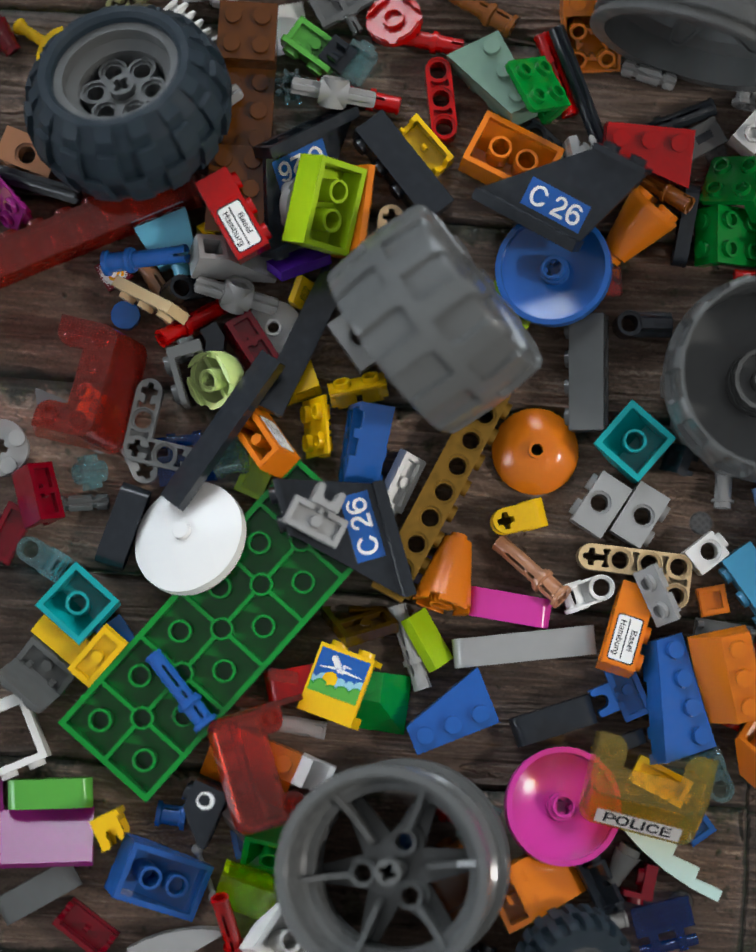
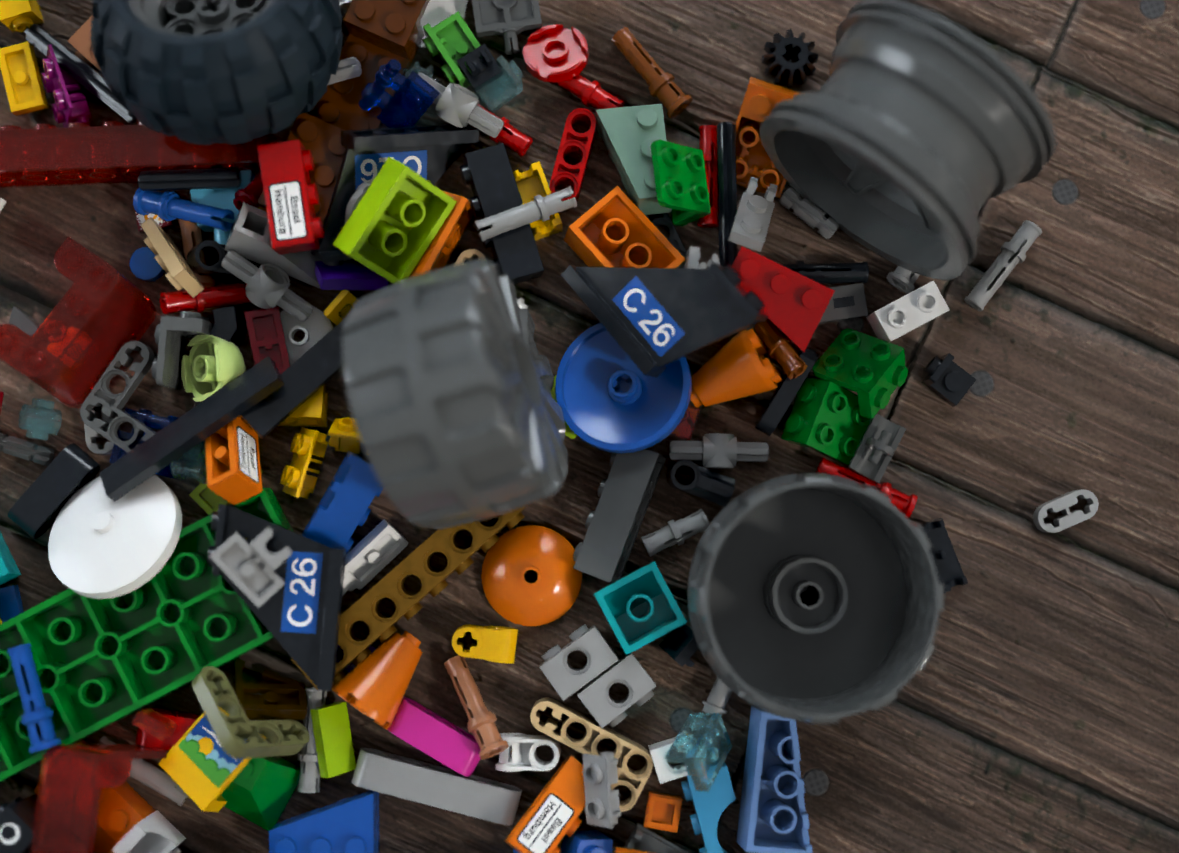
camera: 20 degrees right, 0 degrees up
(140, 231) = (189, 179): none -> black axle
(195, 223) = (250, 194): none -> dark red pin
(293, 103) = (409, 102): none -> clear blue plate
(360, 655) = (233, 730): none -> olive beam
(433, 151) = (526, 213): none -> light grey pin
(607, 94) = (753, 216): none -> light grey hinge
(638, 373) = (675, 532): none -> light grey pin
(648, 294) = (718, 451): none -> light grey axle
(726, 530) = (702, 746): none -> clear light blue bracket

